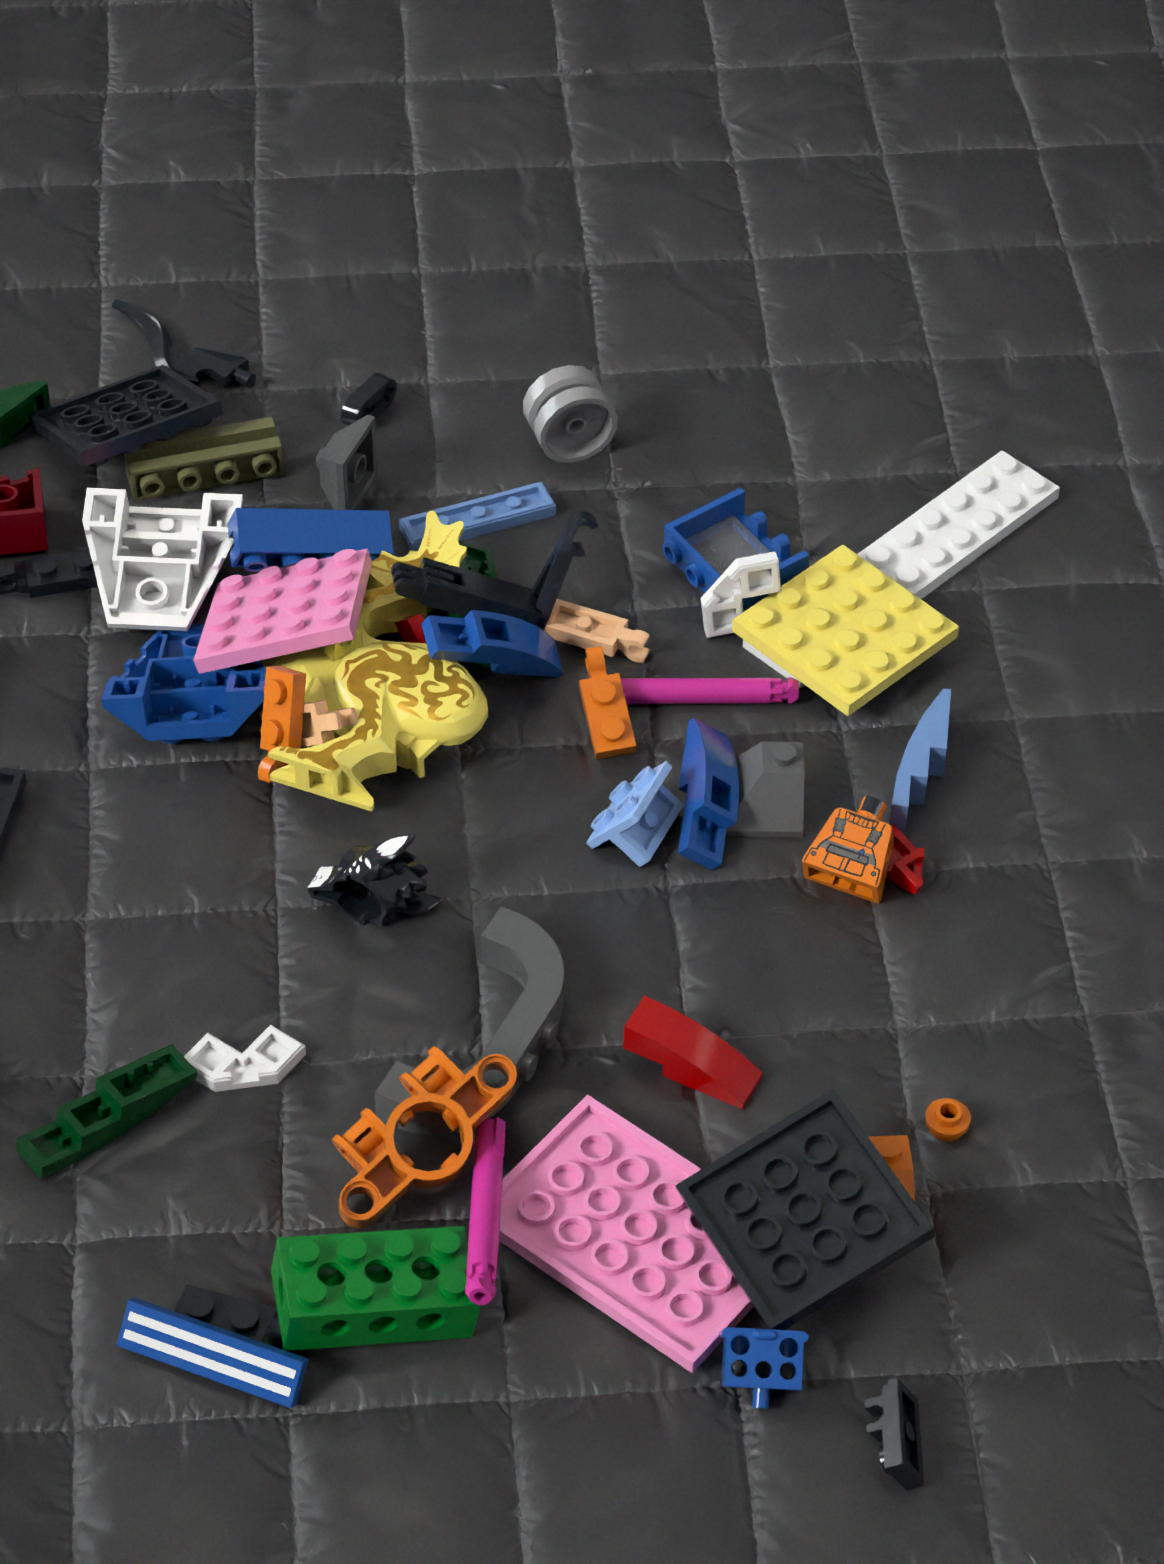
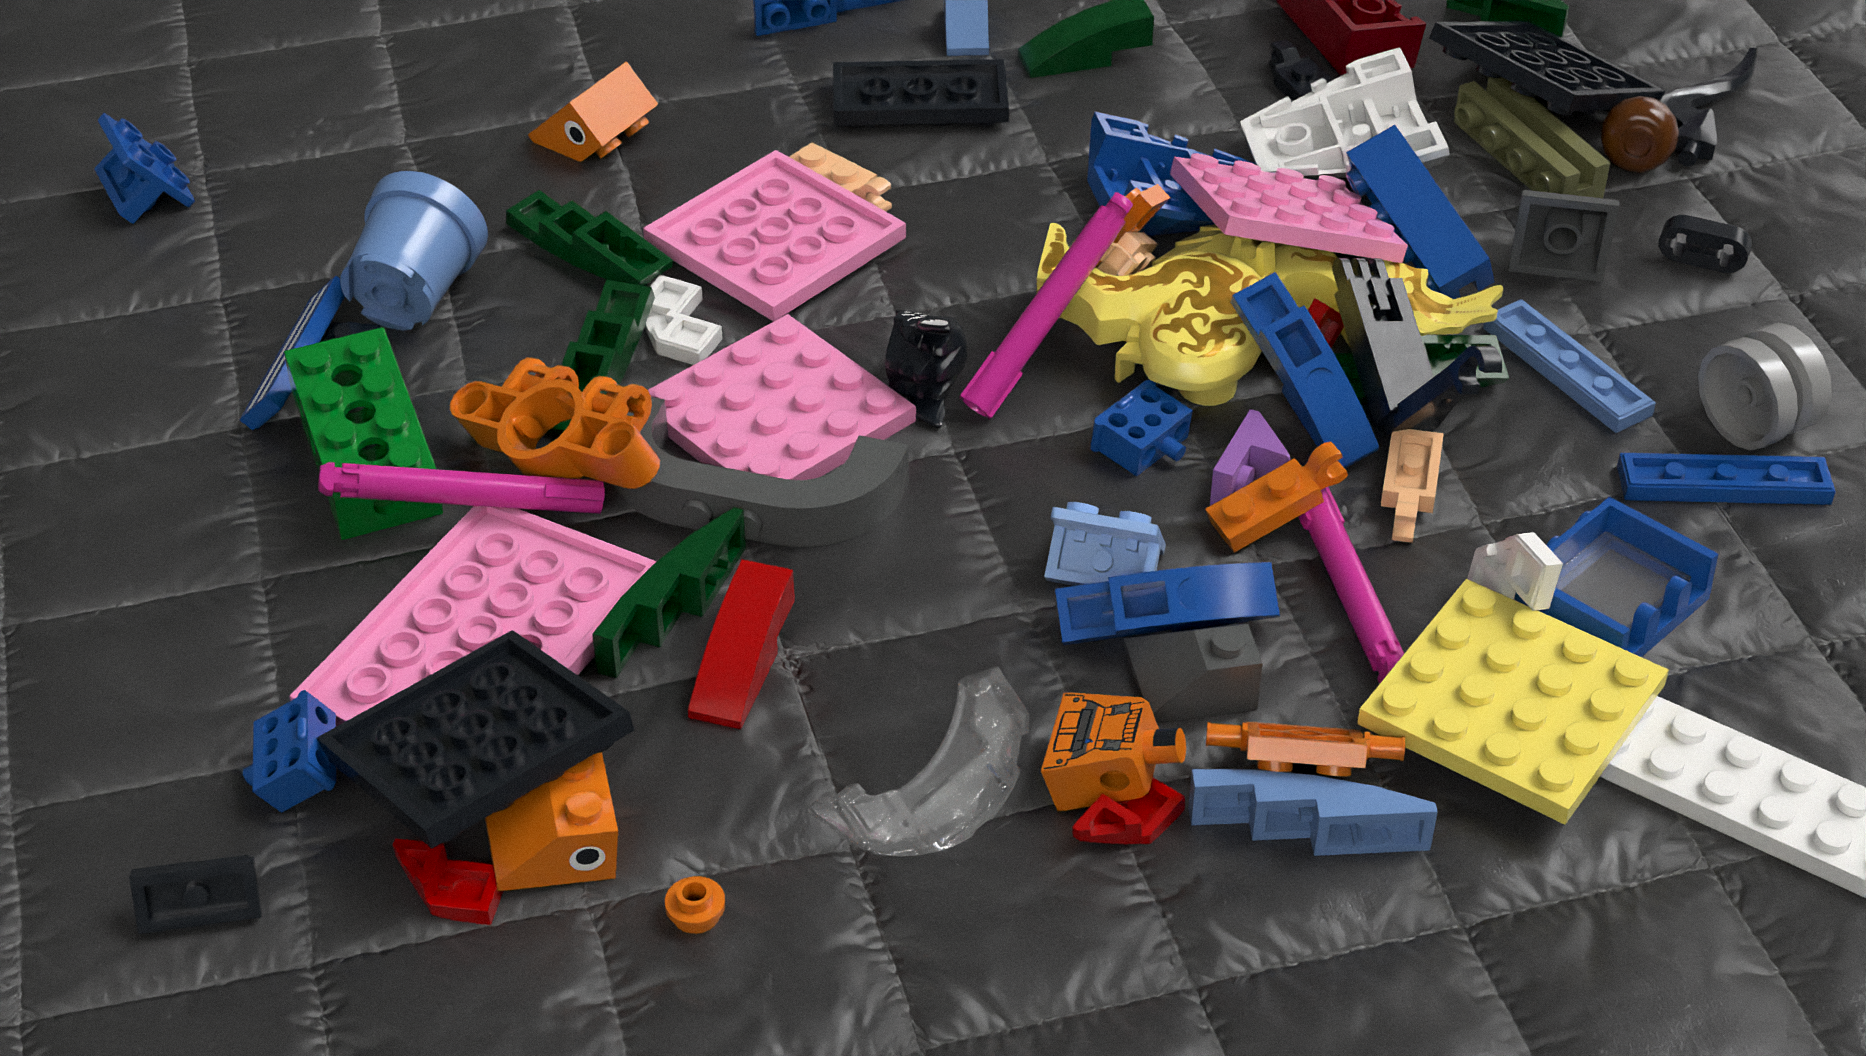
camera: 80 degrees right, 5 degrees down
(71, 915) = (845, 174): none -> light nougat plate
(121, 1231) = (412, 248): none -> medium blue piece
(147, 969) = (775, 234): none -> bright pink plate
(235, 387) = (1639, 134): none -> reddish brown piece
(281, 1110) = (609, 335): none -> dark green slope
(370, 771) = (1004, 366): none -> dark pink piece
(388, 1001) = (779, 405): none -> bright pink plate
(494, 770) = (1142, 428): none -> blue piece
(553, 714) = (1248, 456): none -> medium lavender slope
(609, 1081) = (675, 584): none -> dark green slope
(627, 473) = (1725, 478): none -> blue tile
(853, 951) = (955, 790): none -> clear windscreen
(870, 744) = (1281, 745): none -> orange plate
(907, 1274) = (449, 887): none -> red slope

